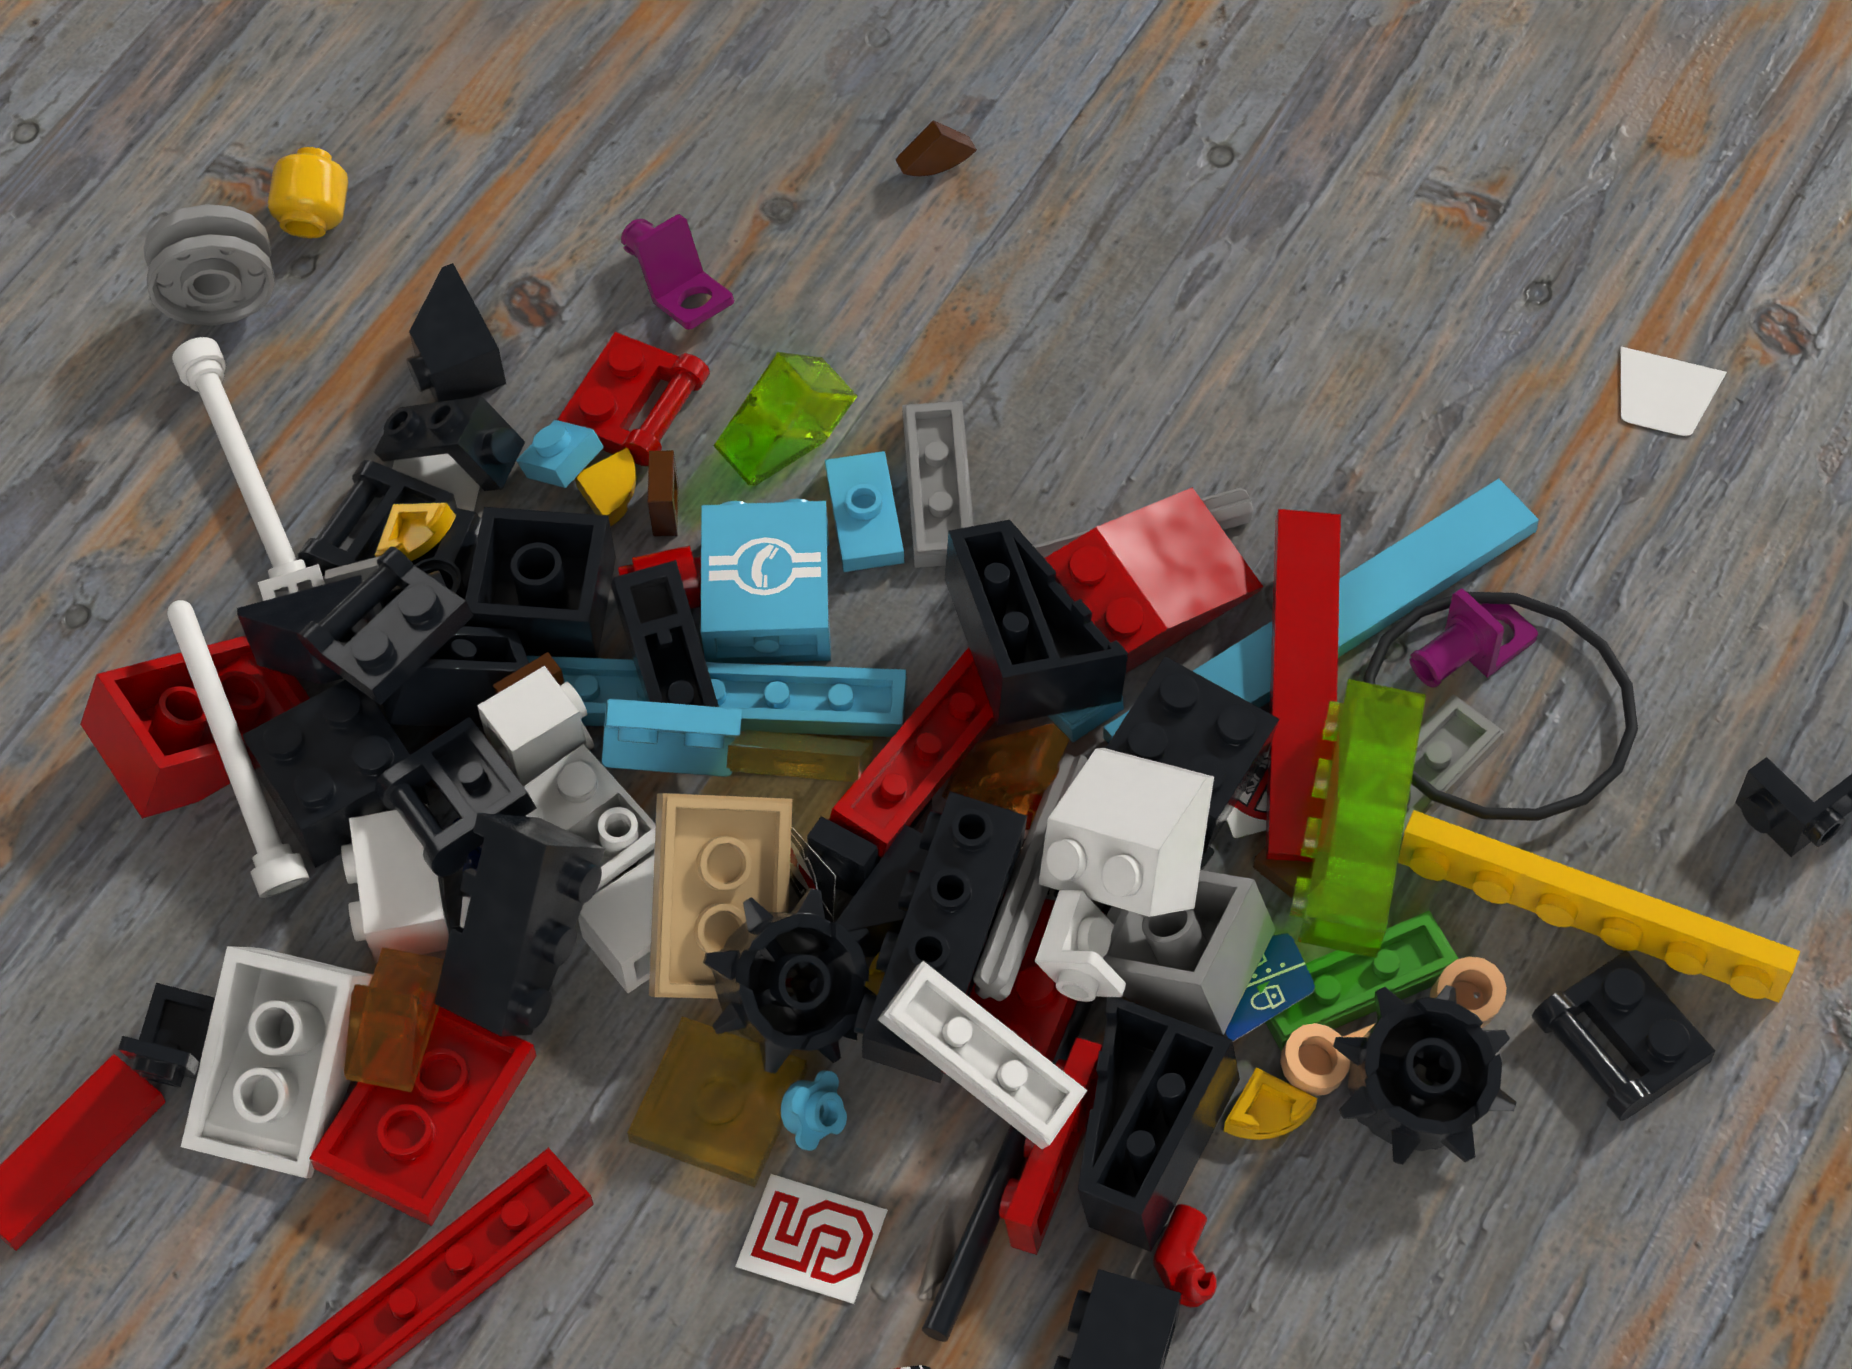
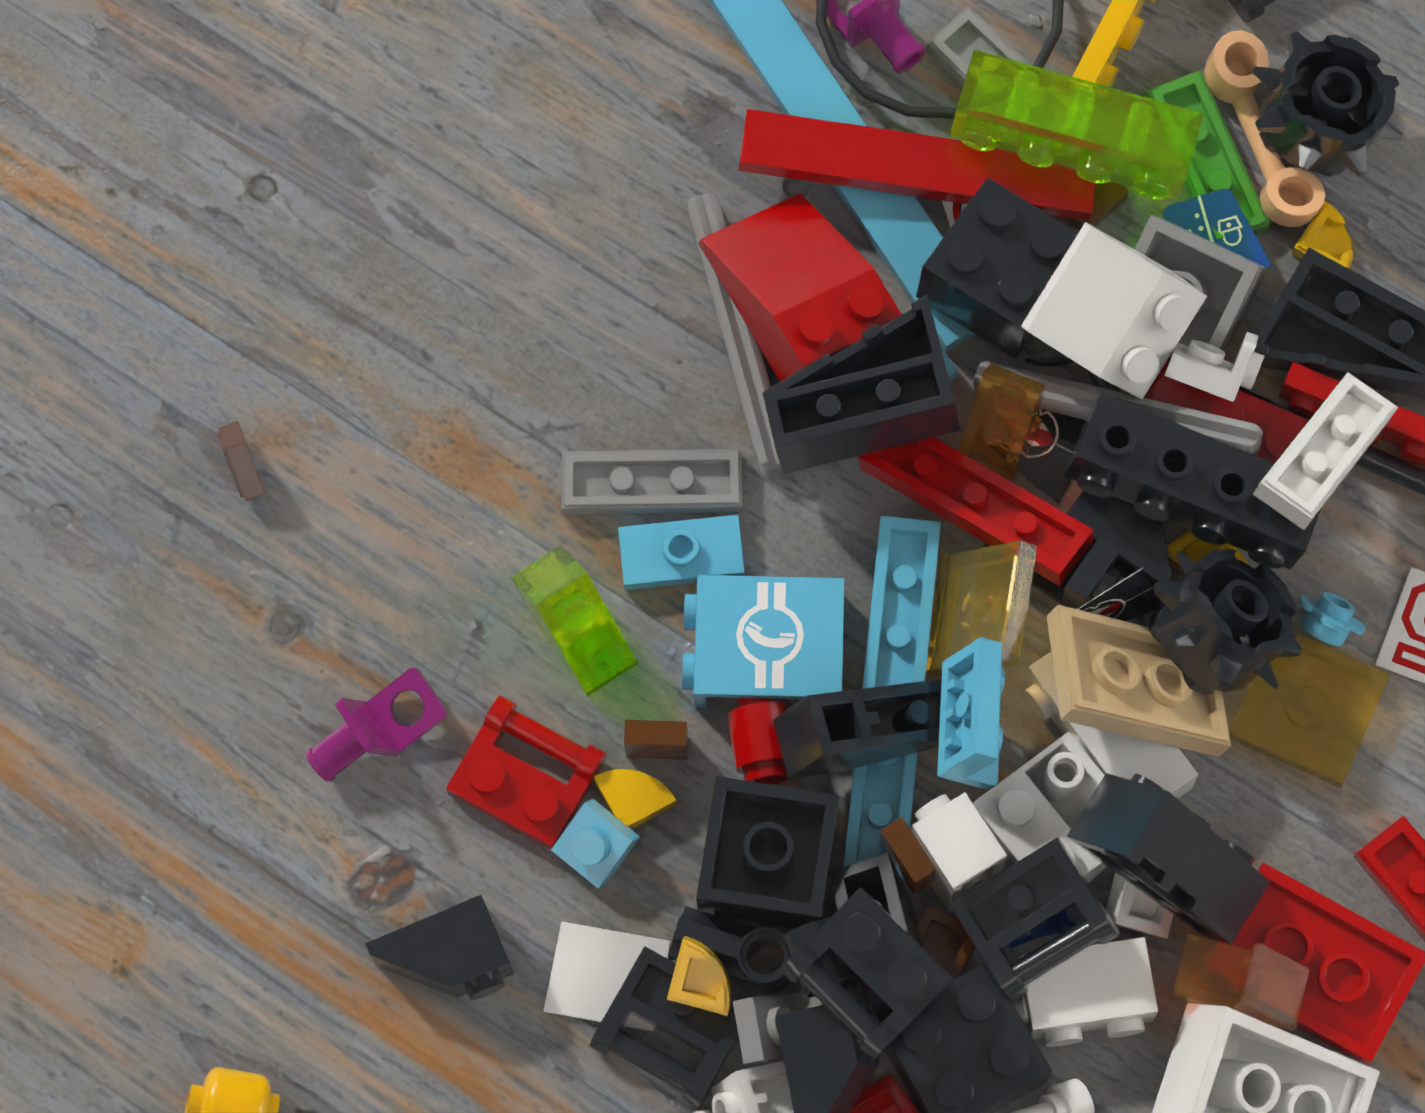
camera: 85 degrees left, 15 degrees up
(460, 427) = (568, 957): black bracket -> none

